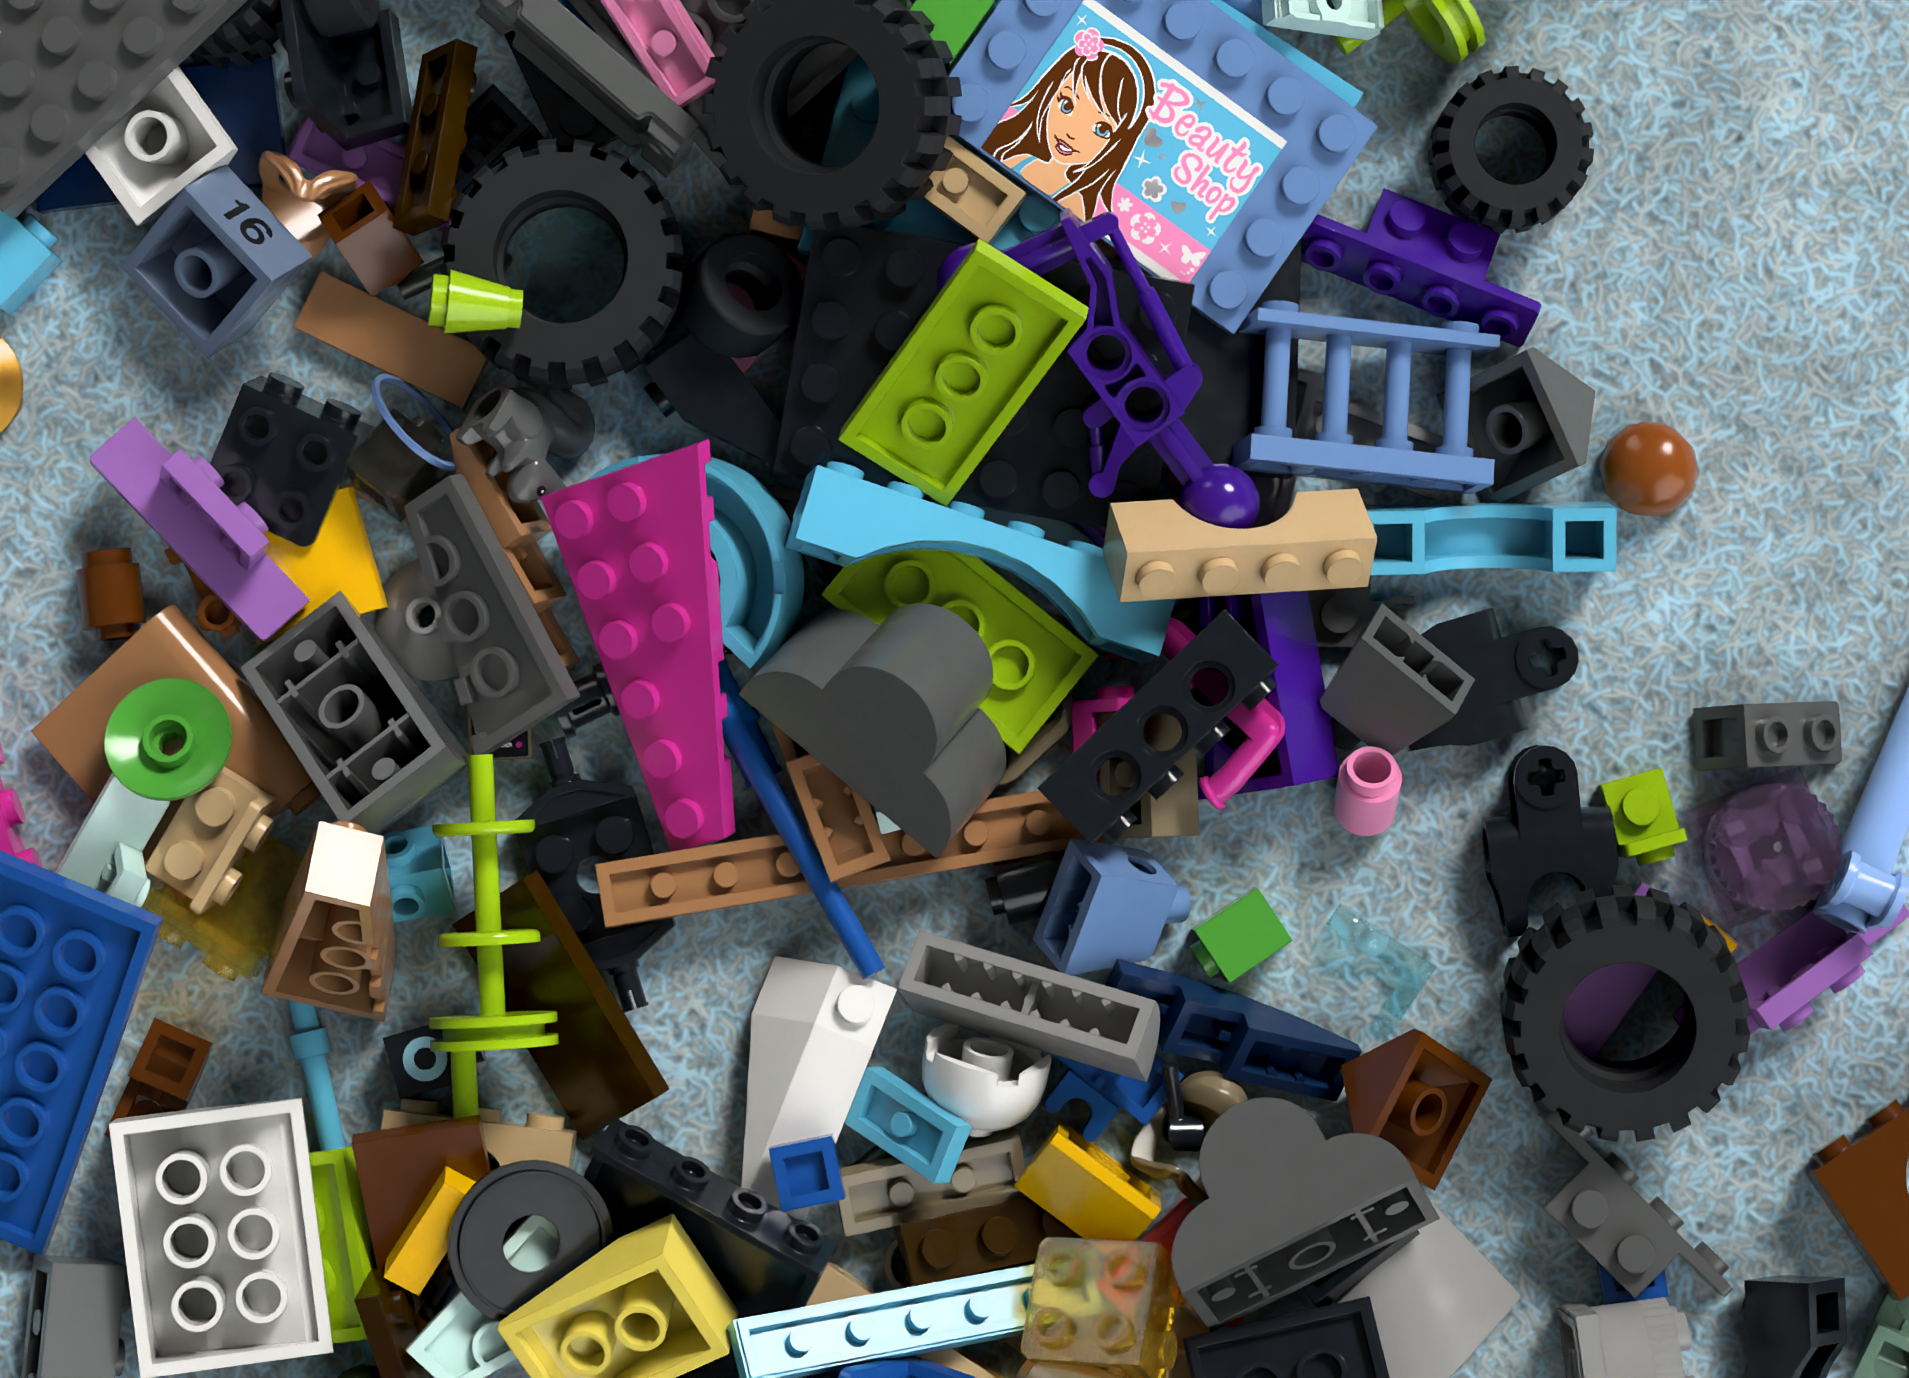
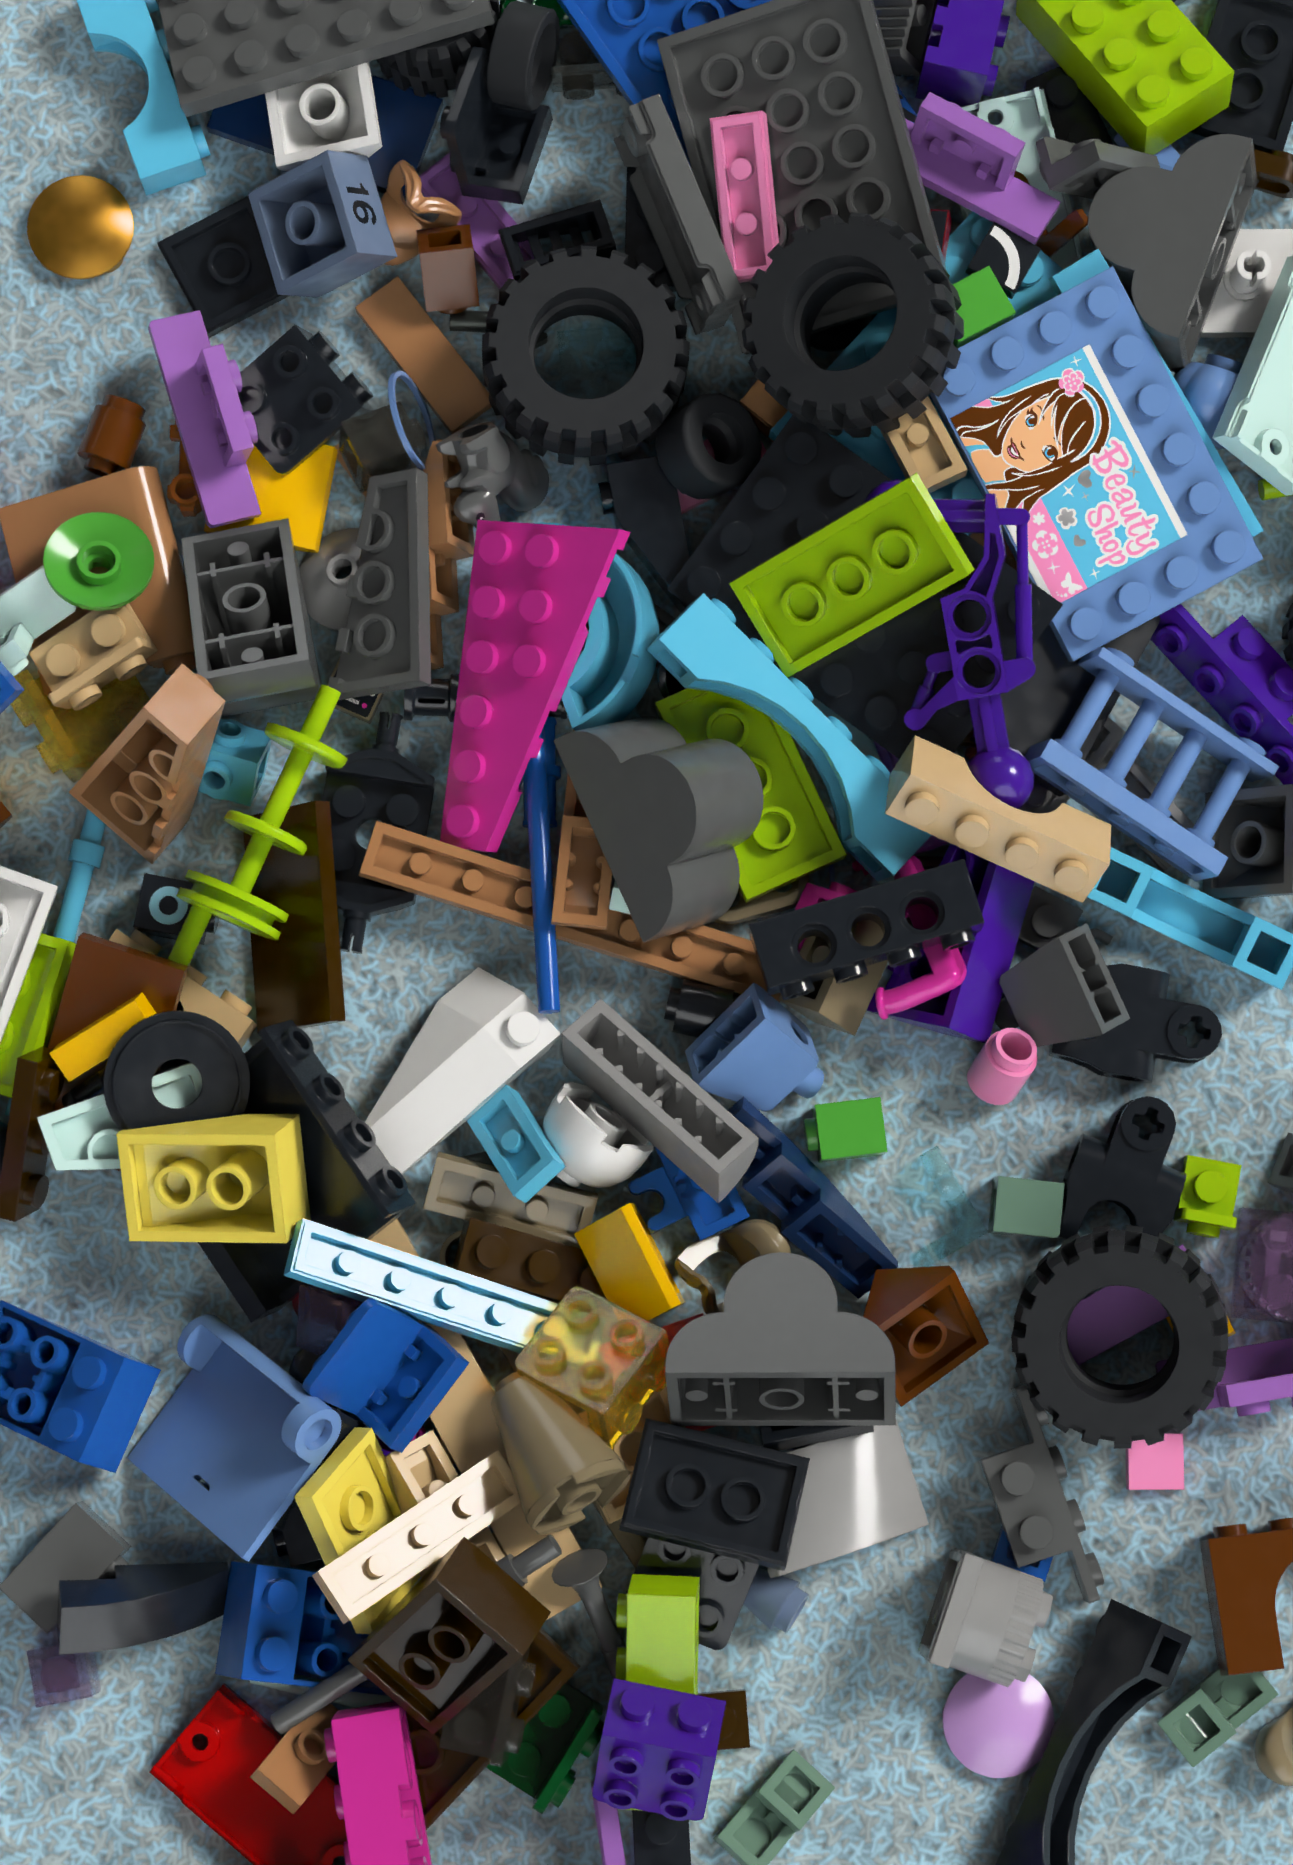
camera: 20 degrees right, 5 degrees down
(130, 353) = (222, 267): none -> black tile
(435, 137) = (536, 213): dark brown plate -> none
(472, 304) = (501, 342): lime cone -> none
(807, 1172) = (419, 1137): blue plate -> none
(1179, 1130) = (724, 1256): black hand -> none
(1462, 924) = (1025, 1207): none -> sand green panel
(1726, 1122) = (1156, 1465): none -> bright pink tile

